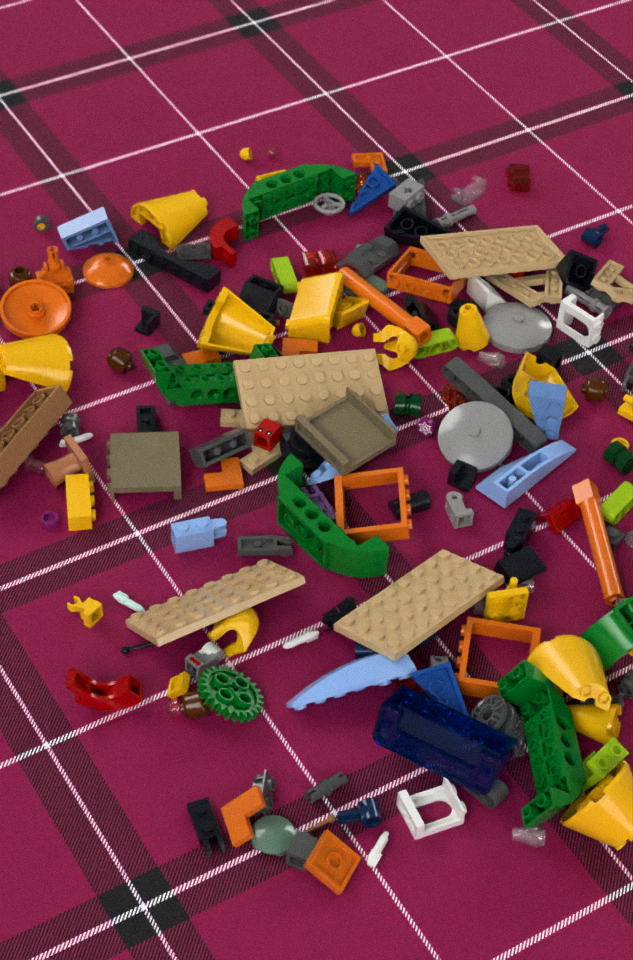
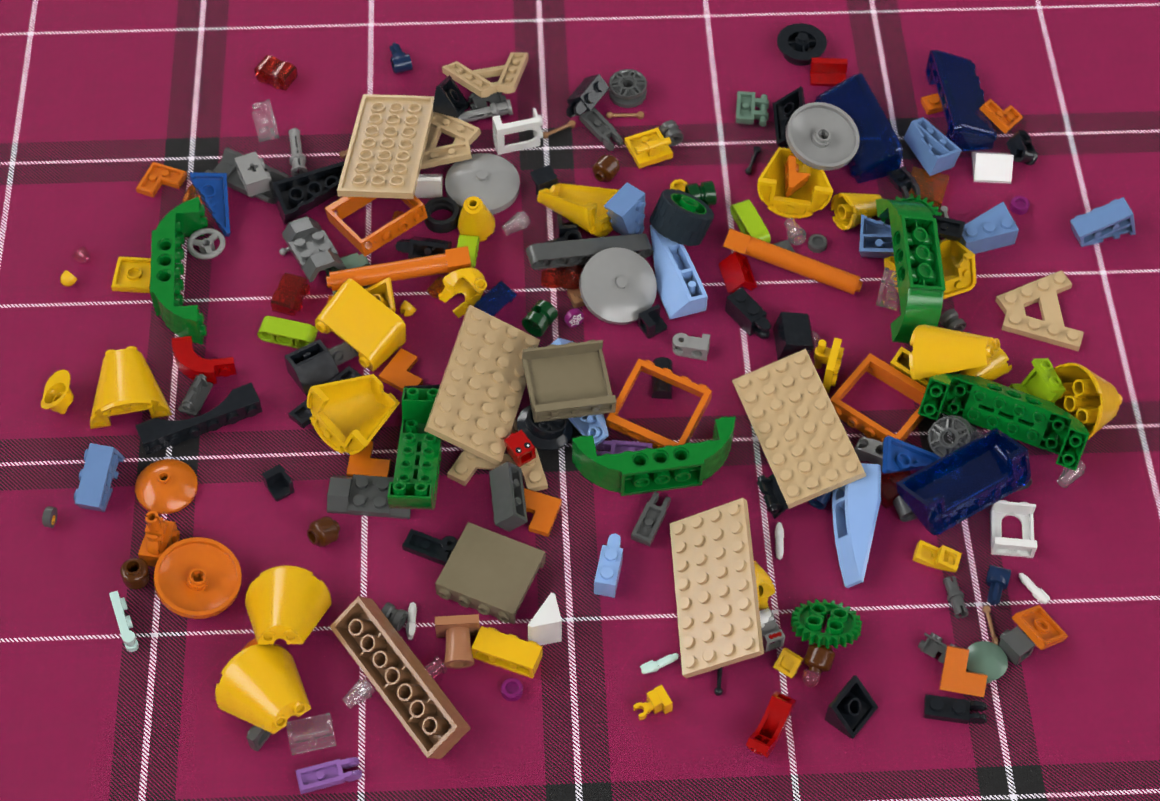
camera: 60 degrees left, 10 degrees up
(116, 510) = (546, 624): none -> white slope
(143, 188) = (57, 393): none -> yellow piece
(159, 743) = (851, 708): none -> black slope
(361, 759) = (938, 558): none -> yellow slope
(403, 371) = (496, 299): none -> clear blue hinge
(576, 446) = (681, 217): none -> black wheel
(627, 357) = (571, 124): none -> medium nougat hinge

